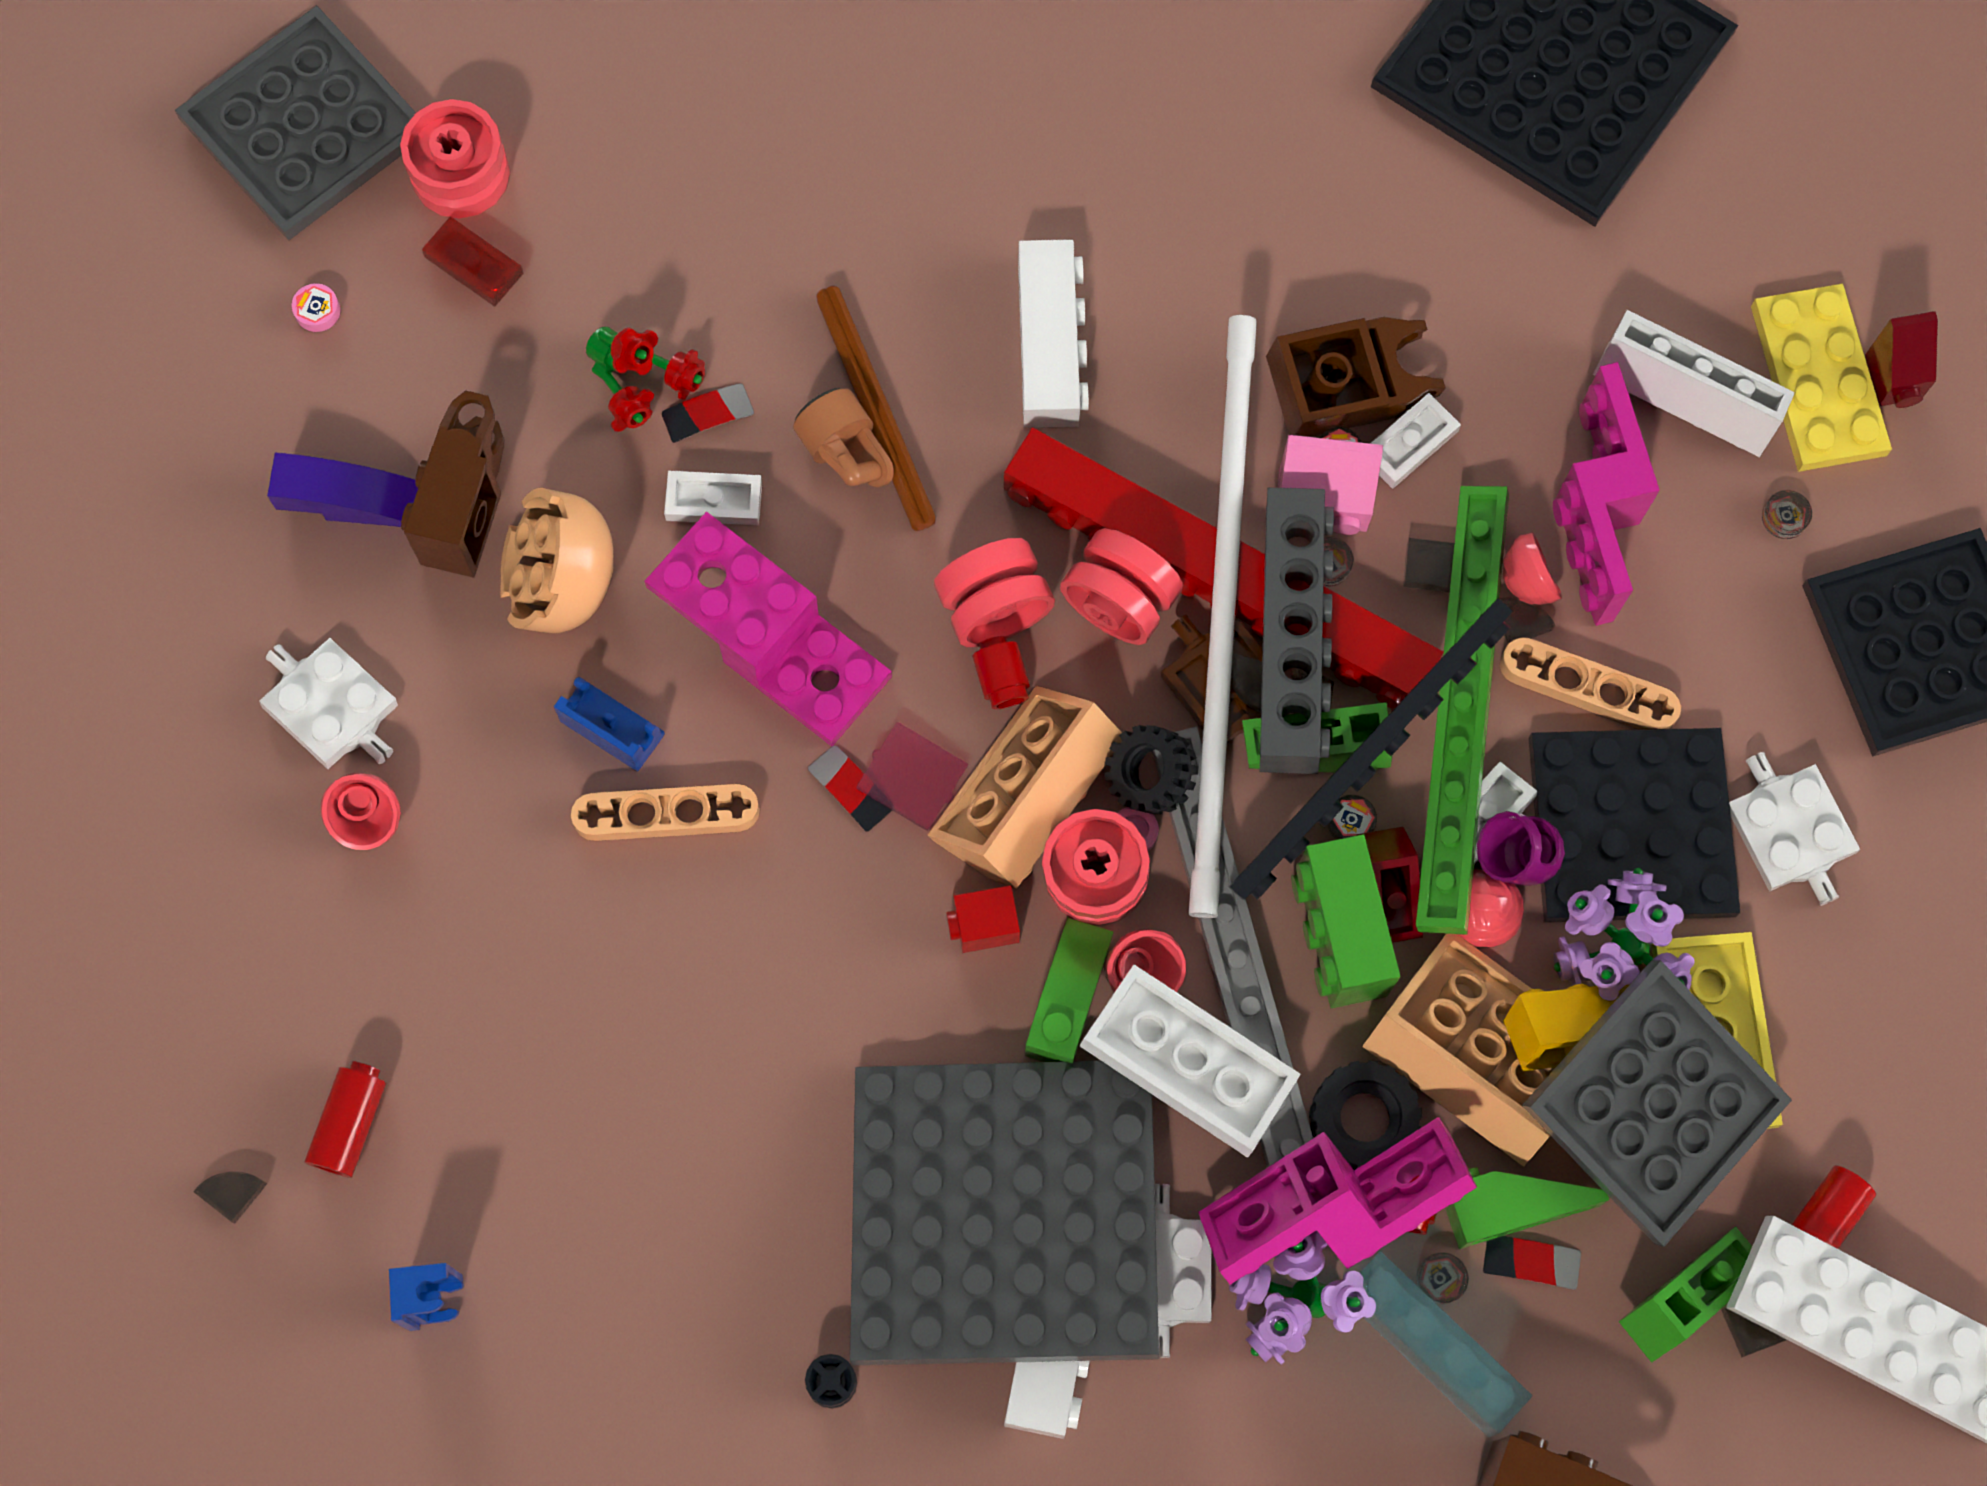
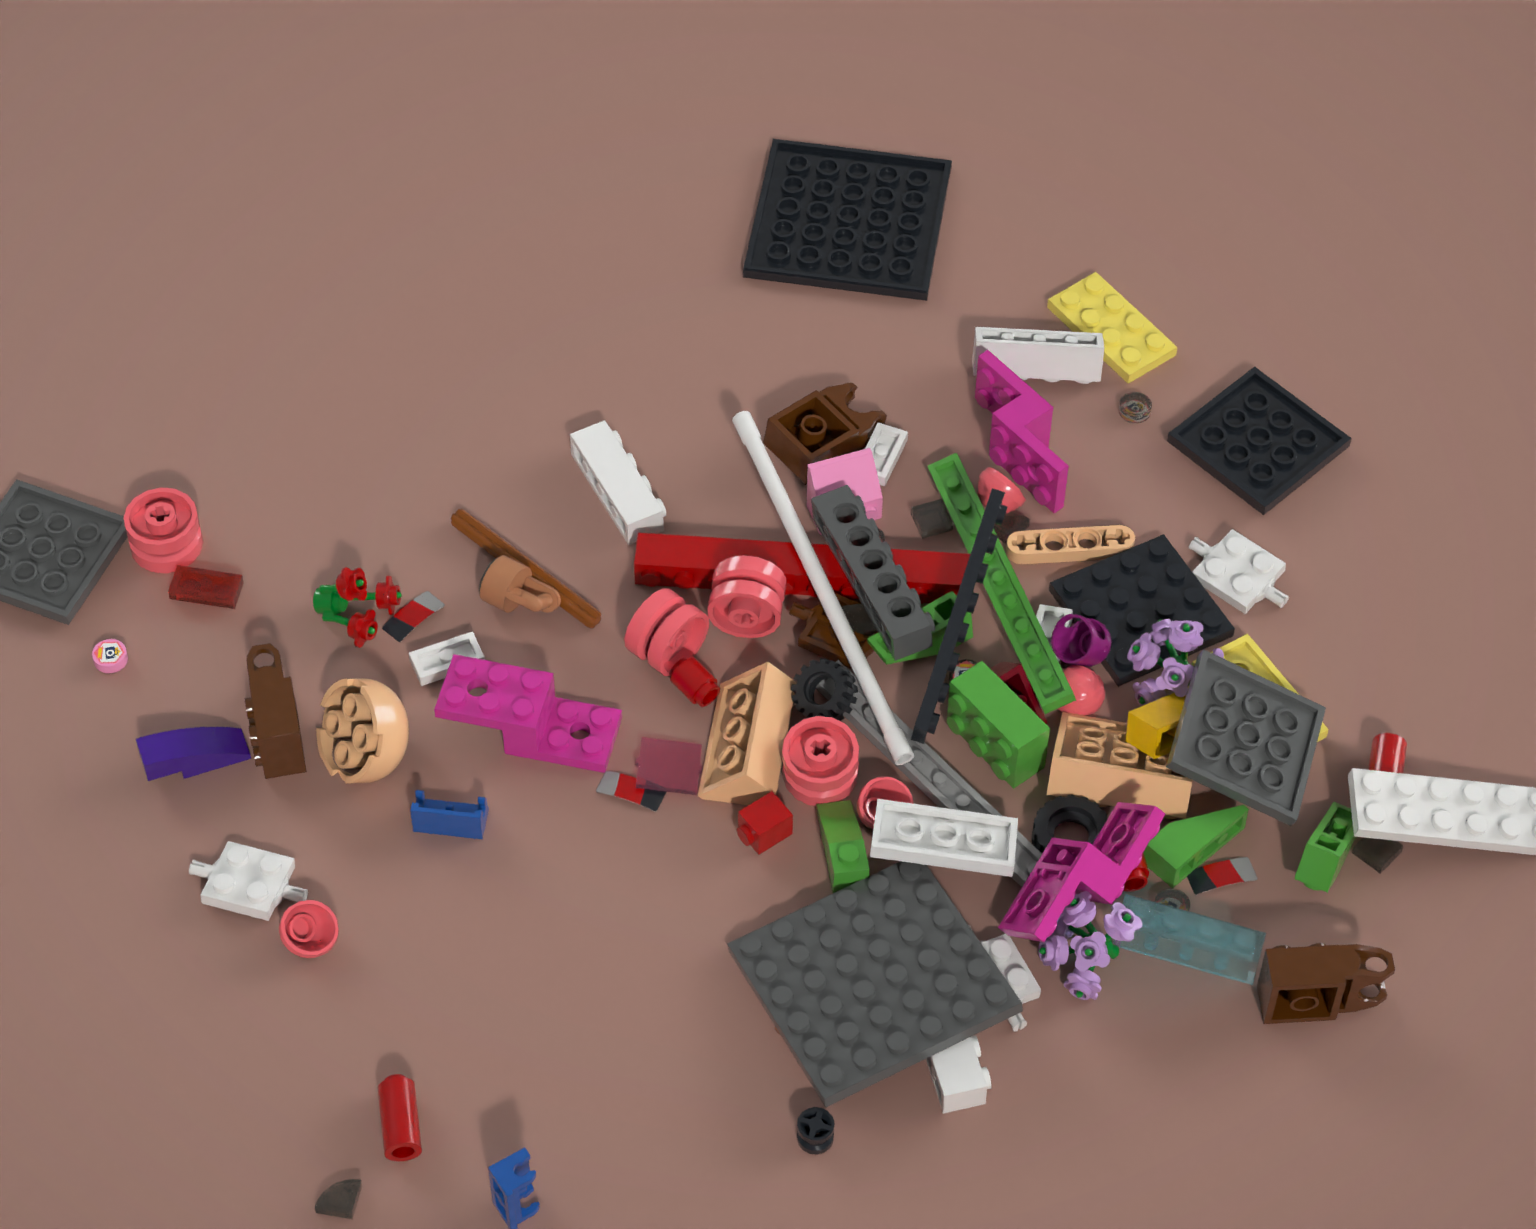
camera: 25 degrees left, 20 degrees down
(665, 819) = (519, 856): light nougat beam -> none
(1904, 359) = (1157, 292): dark red slope -> none

